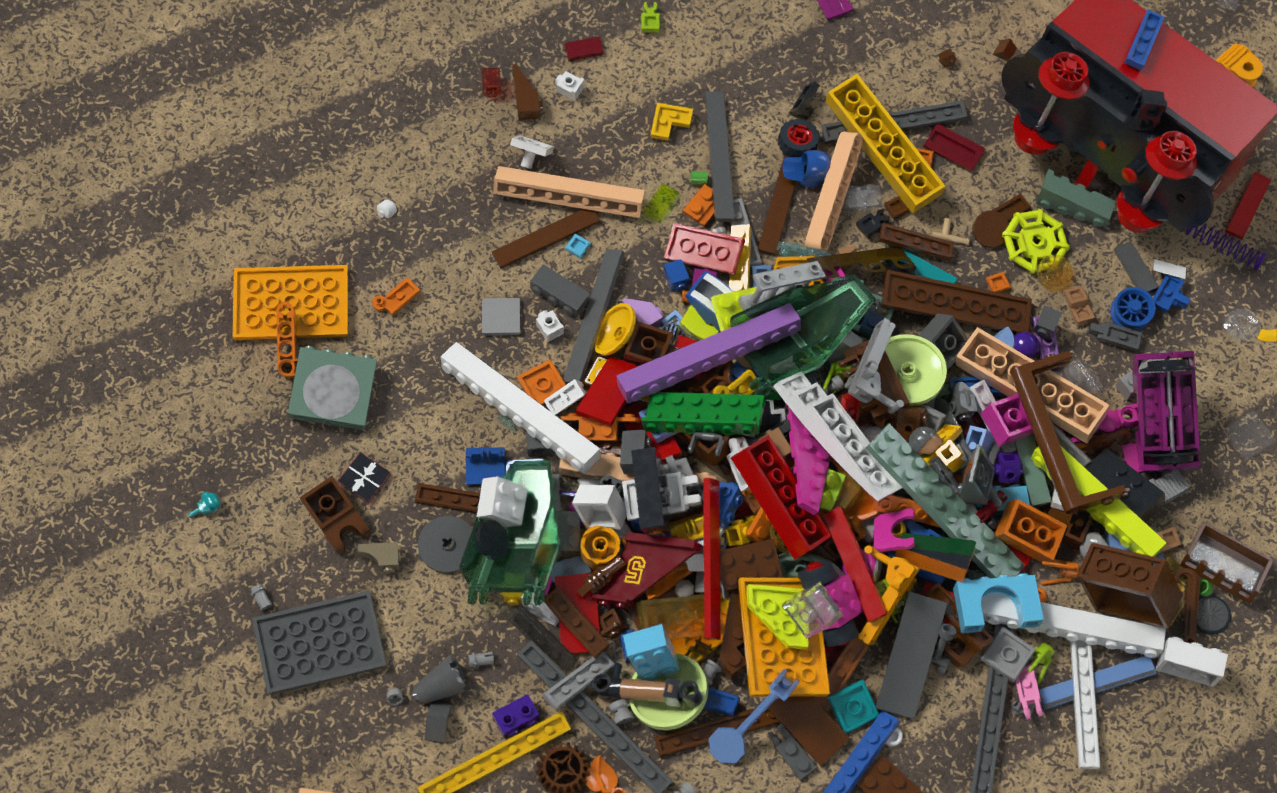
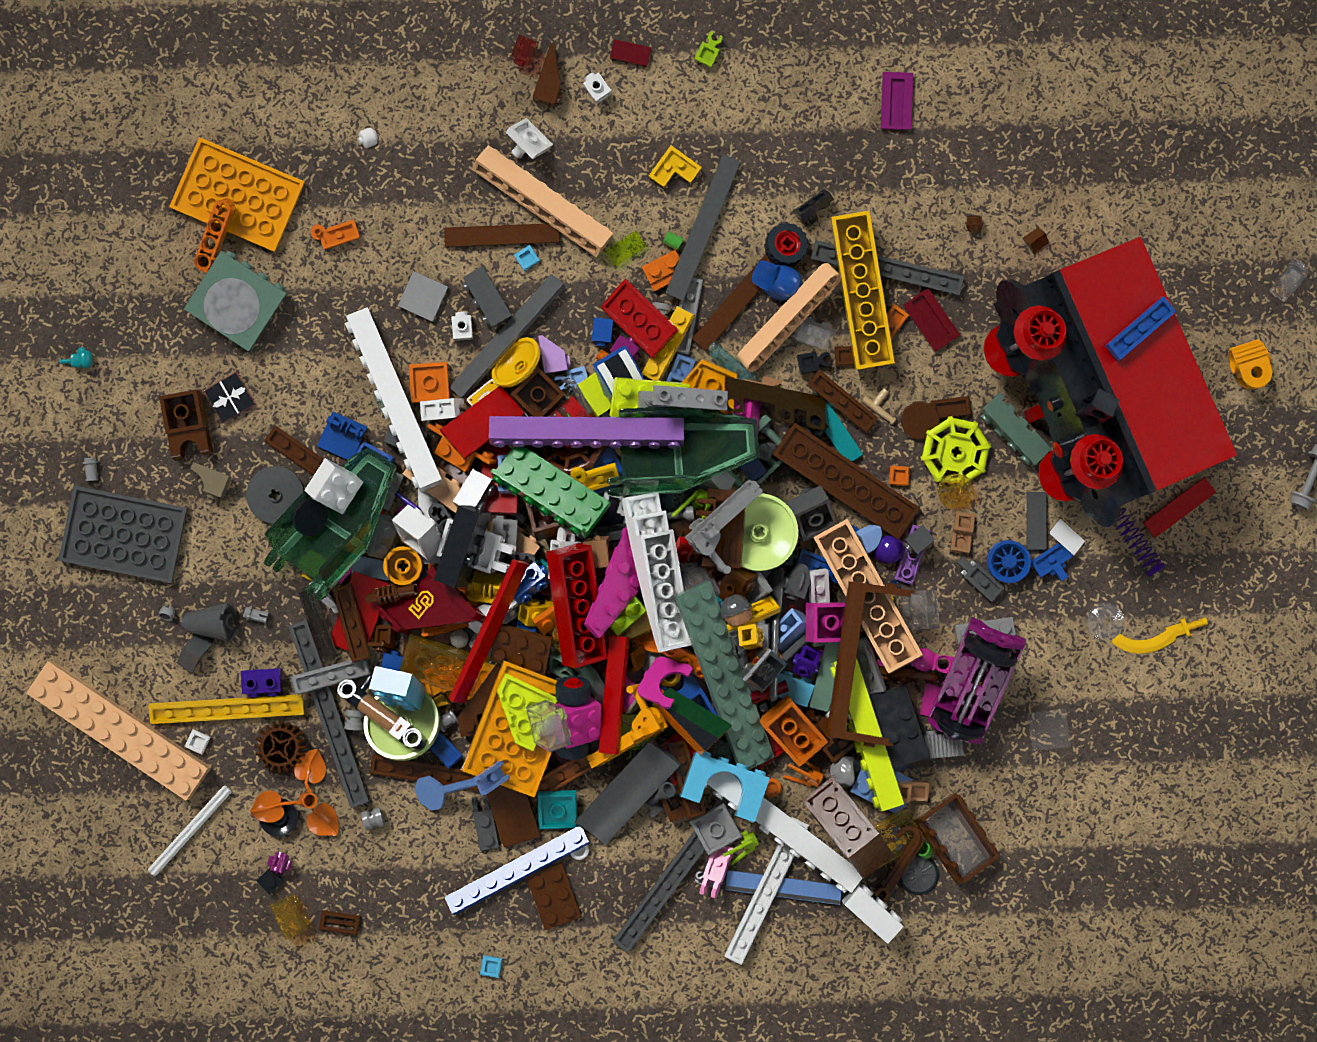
camera: 30 degrees right, 20 degrees up
(709, 437) = (545, 519): dark grey piece -> none

